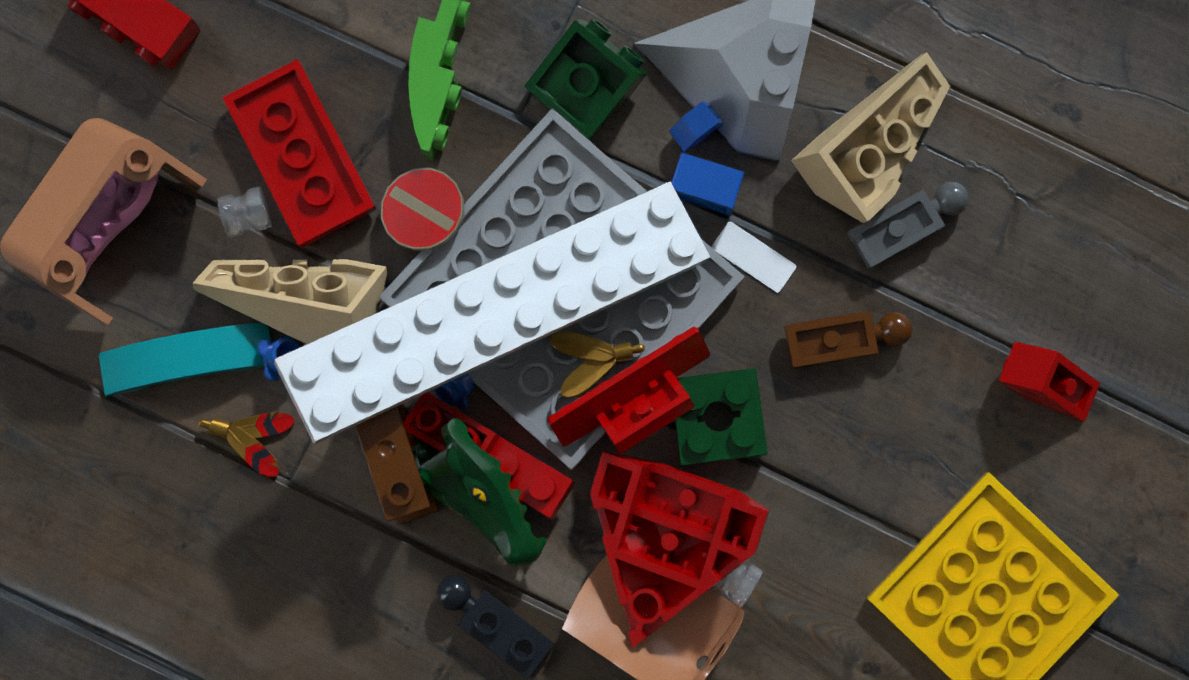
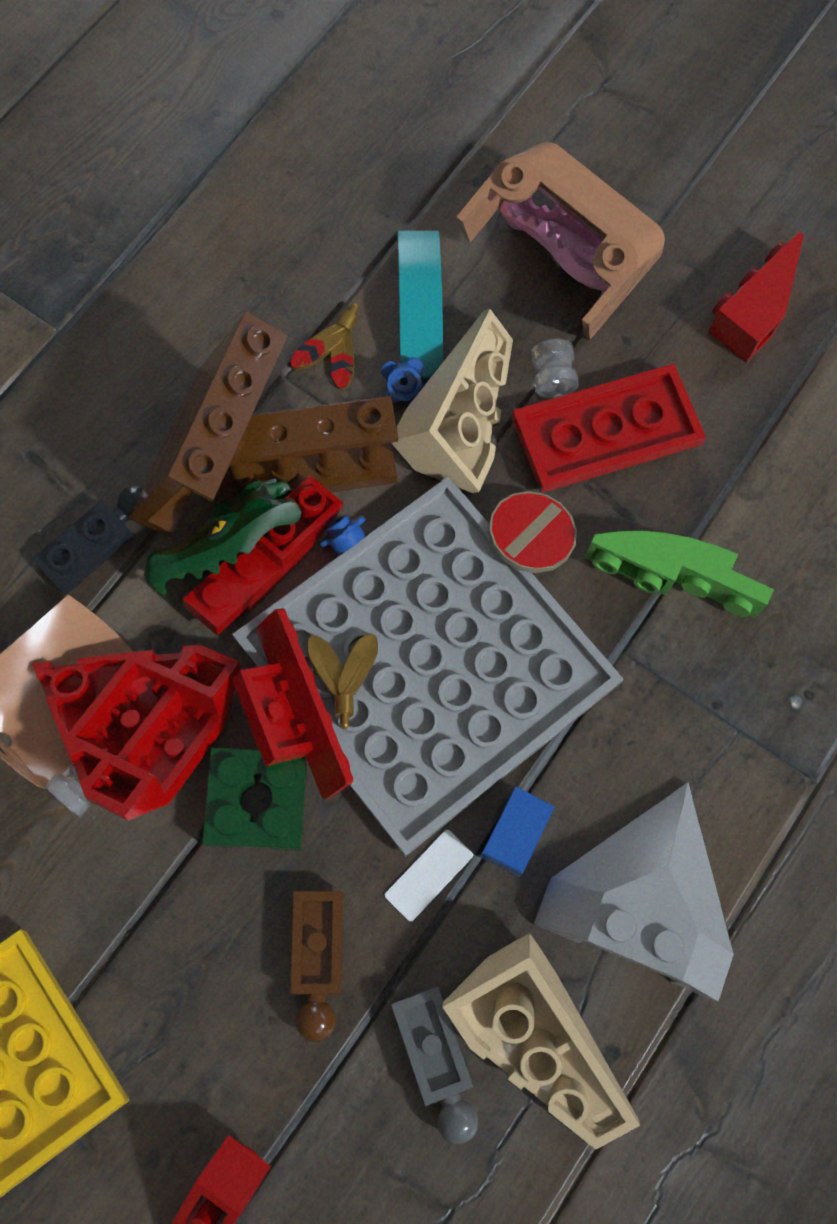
camera: 90 degrees right, 10 degrees down
(382, 521) = (209, 423): none -> reddish brown panel
(489, 312) = (406, 570): white plate -> none
(586, 76) = (655, 722): dark green plate -> none
(696, 126) = (584, 832): blue piece -> none

